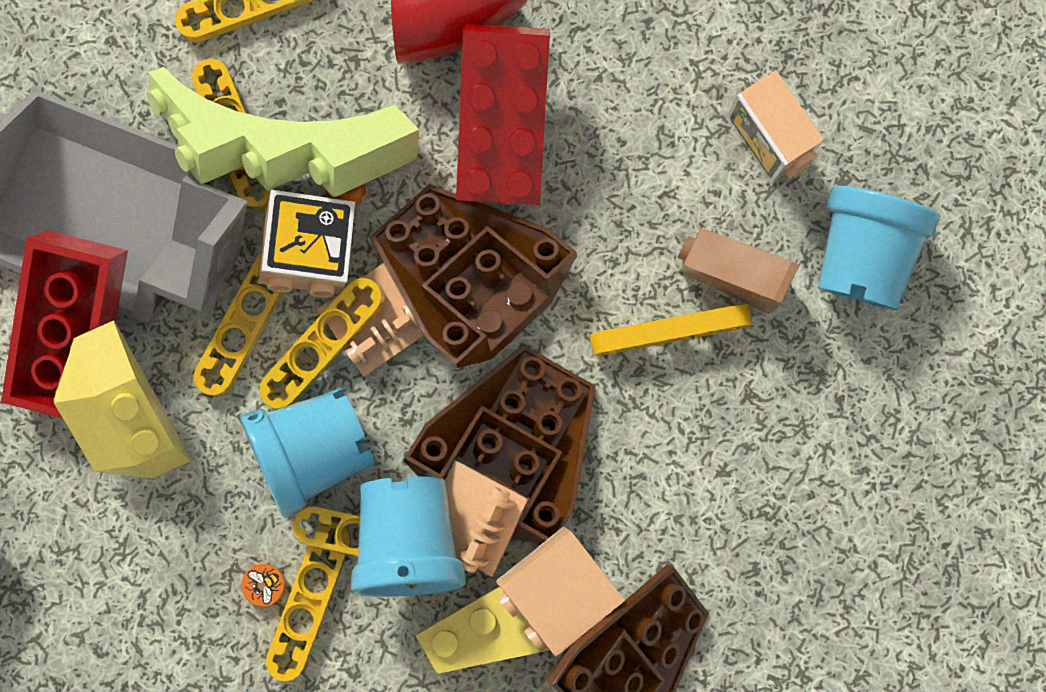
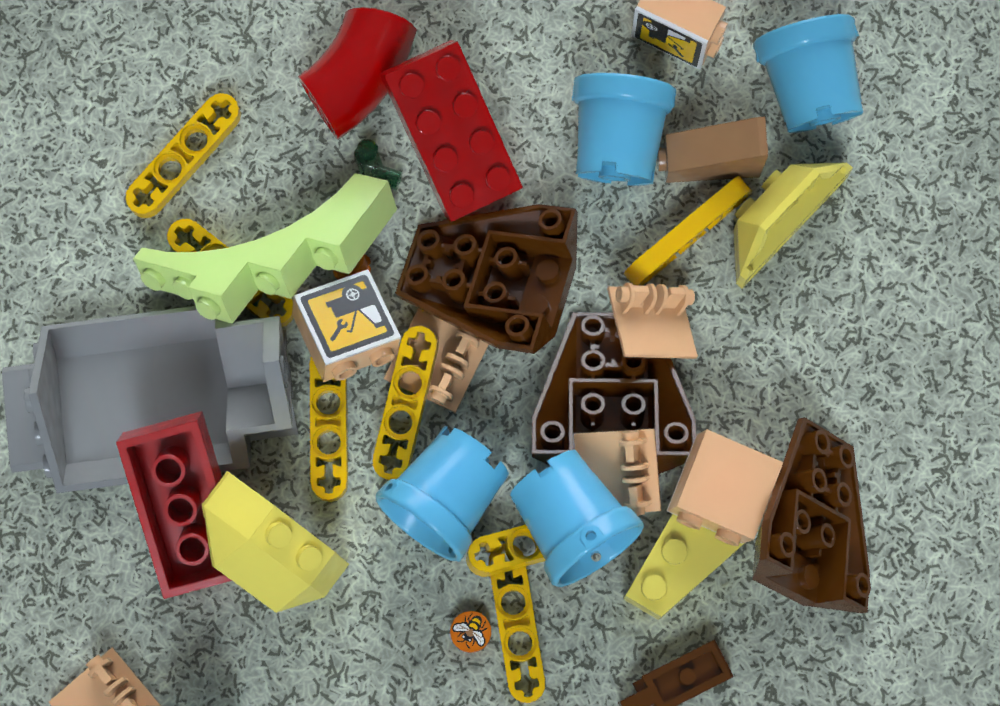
camera: 25 degrees left, 5 degrees down
(417, 105) = (370, 163): none -> clear green arm
(589, 396) = (653, 320): none -> light nougat hinge
(662, 197) = (620, 126): none -> medium azure piece
(768, 359) = (780, 212): none -> light yellow wedge

